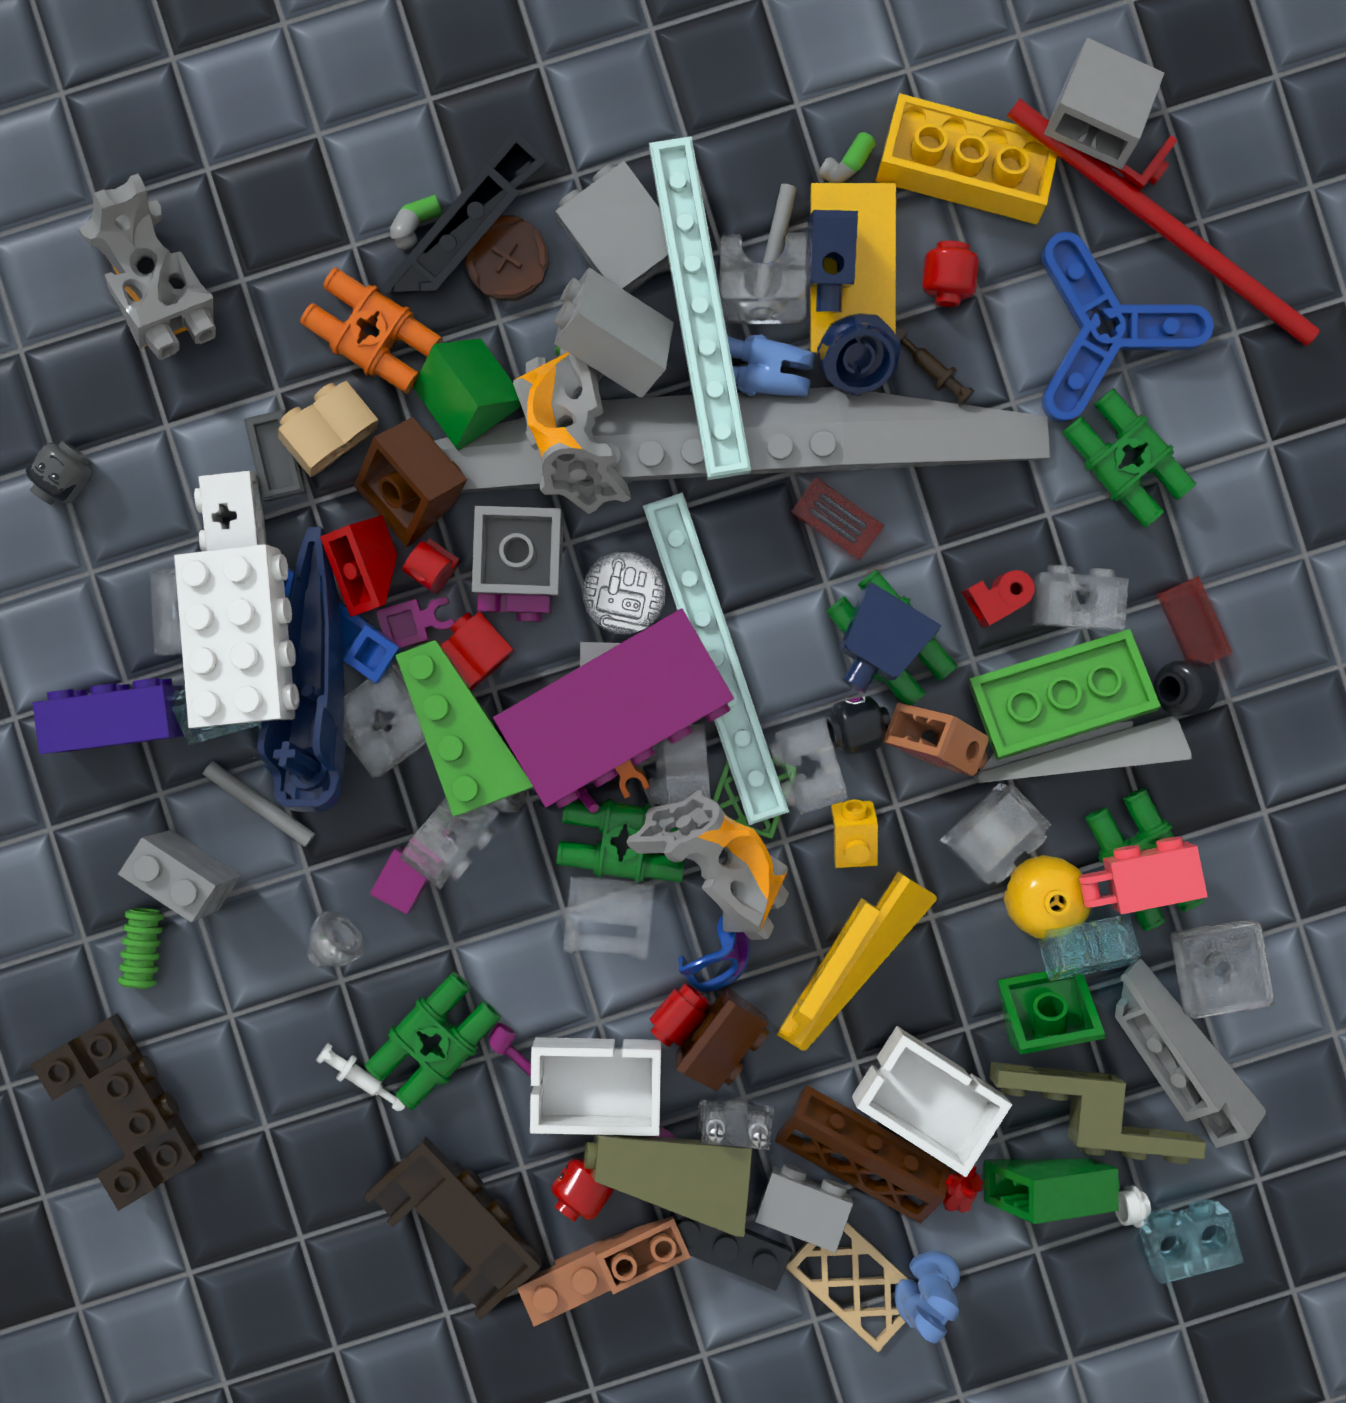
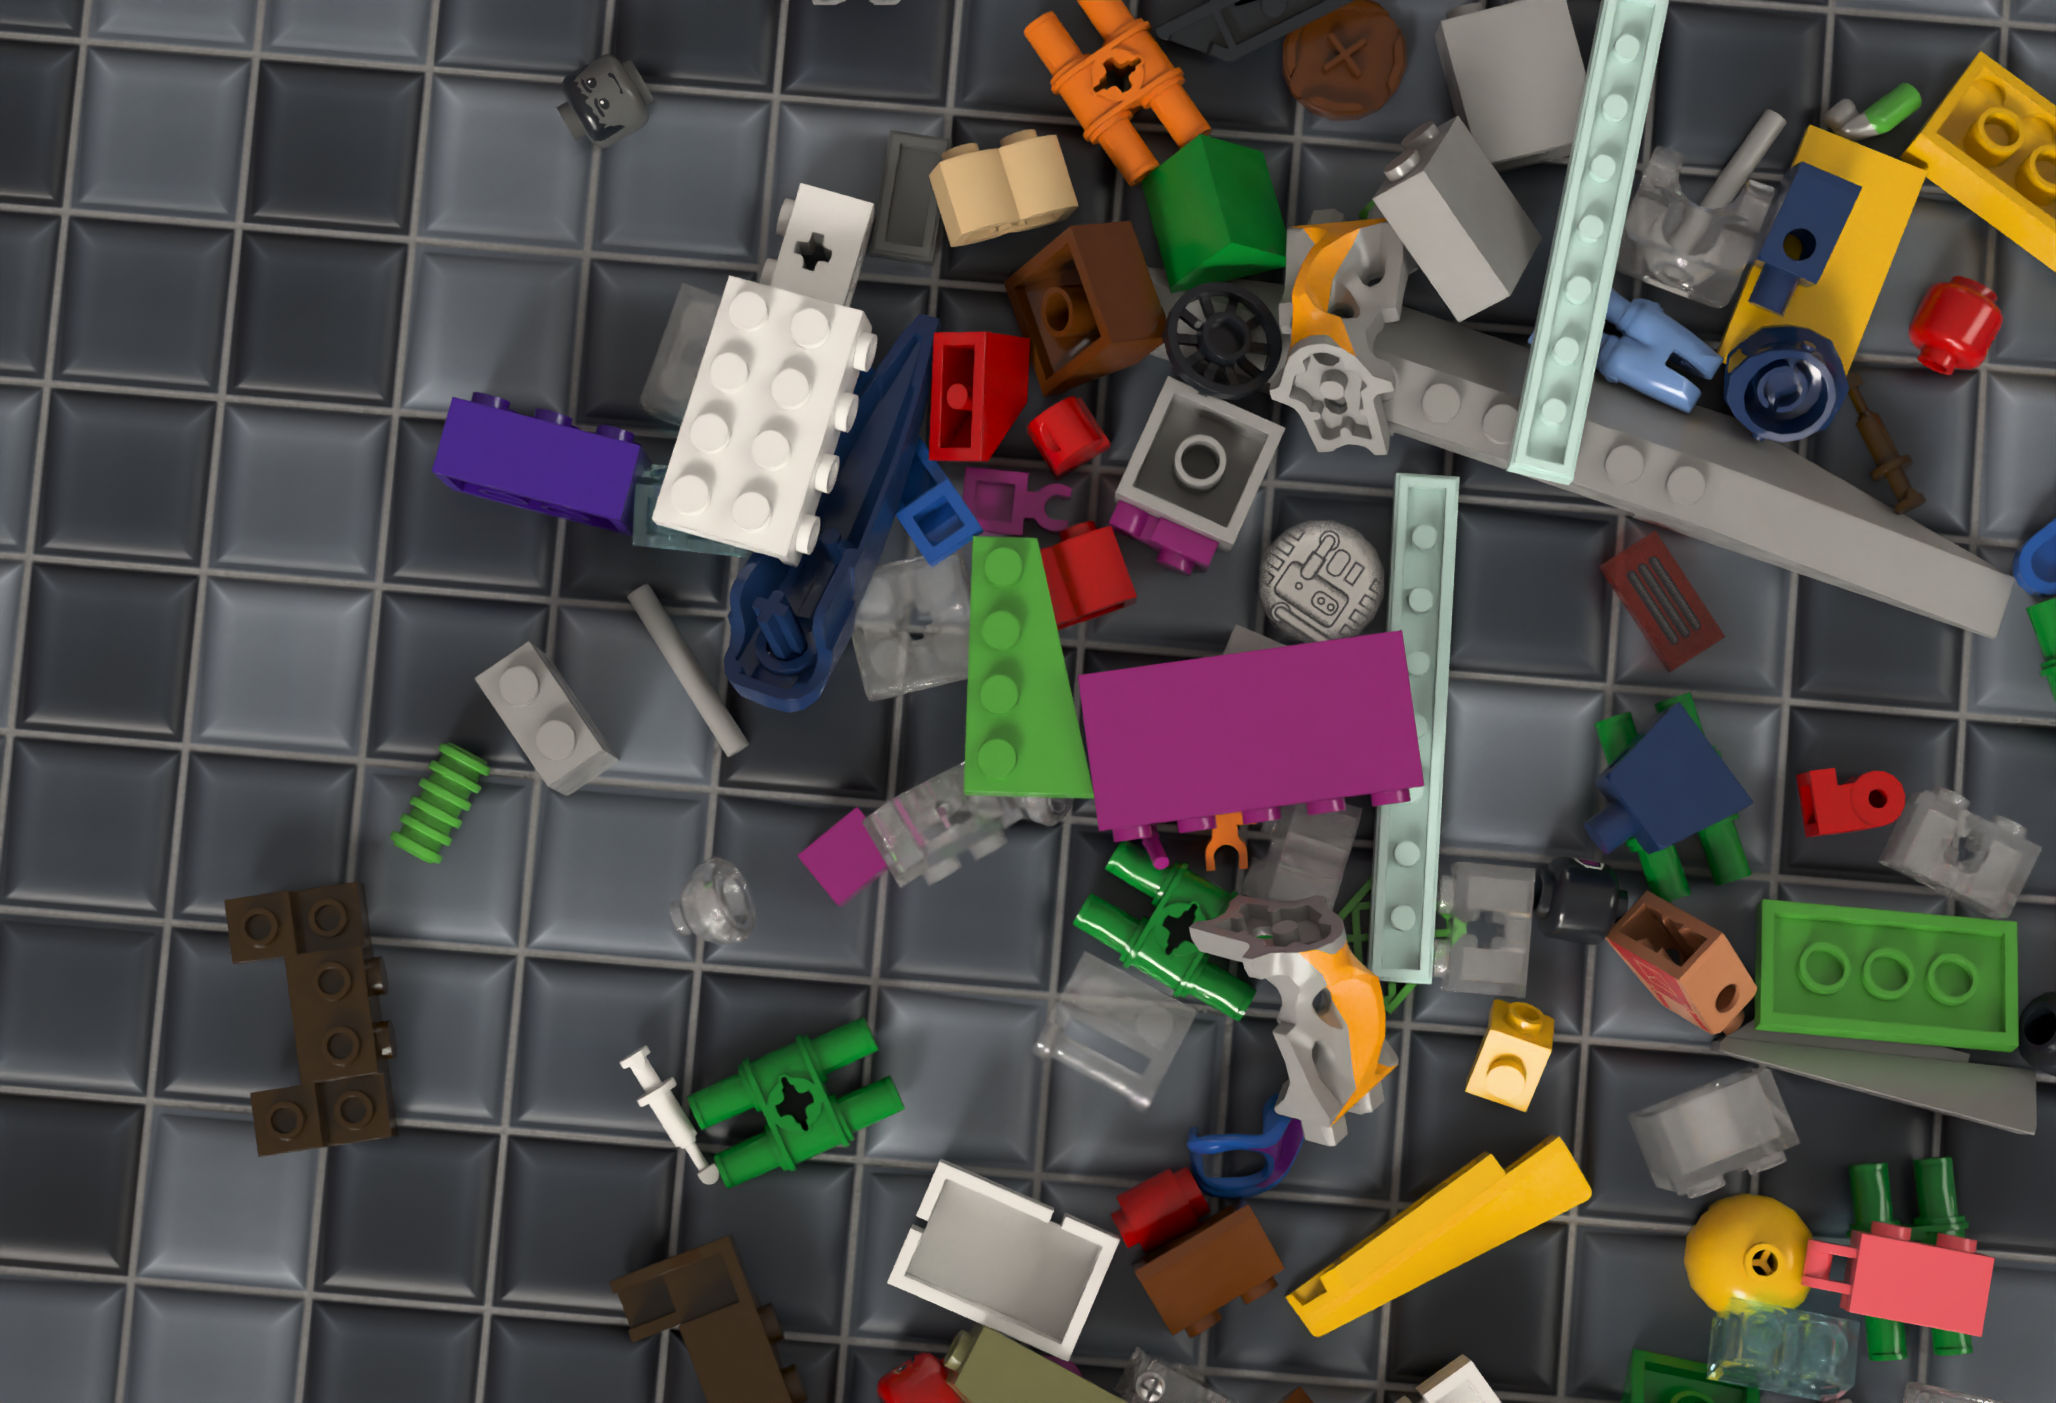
camera: 25 degrees right, 5 degrees down
(499, 469) = (1222, 340): none -> black wheel
(501, 1041) = (891, 1142): magenta hand -> none

